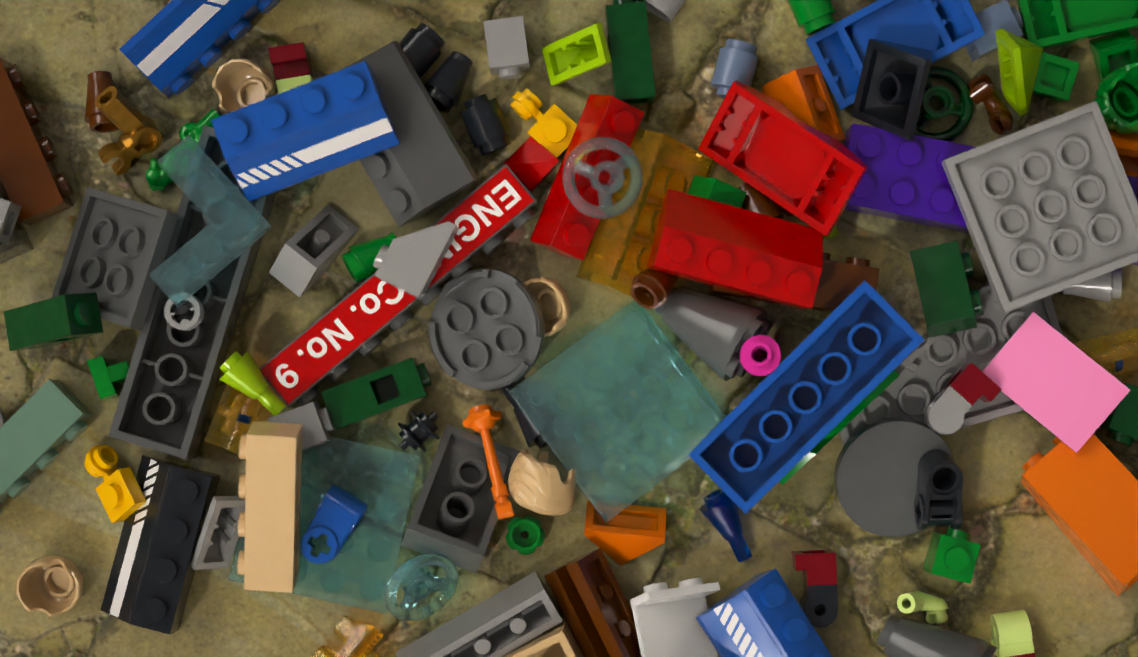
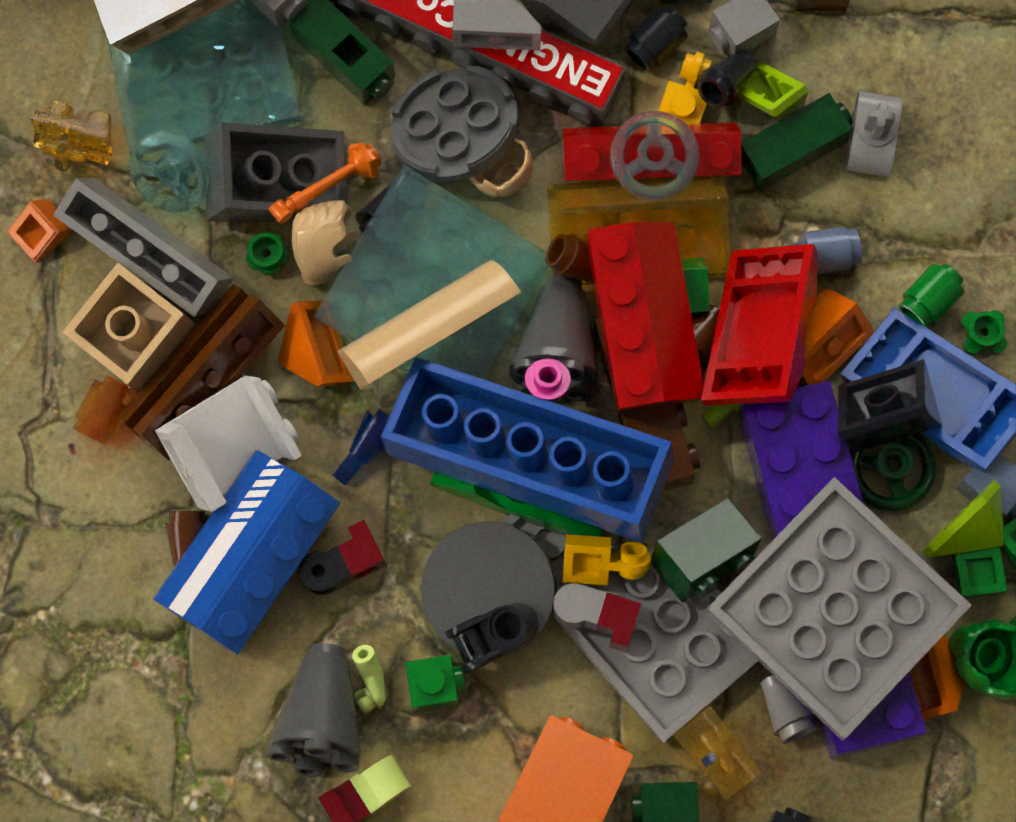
camera: 65 degrees right, 10 degrees down
(337, 519) = (198, 58): blue piece -> none
(418, 430) = (324, 105): black wheel -> none
(532, 163) = (637, 97): red slope -> none
(552, 85) = (725, 80): none -> black cone
(661, 430) = (428, 323): none -> tan brick
(913, 383) = (590, 560): none -> yellow plate
(983, 90) = (931, 508): reddish brown arm -> none
(1055, 382) = (661, 703): bright pink tile -> none

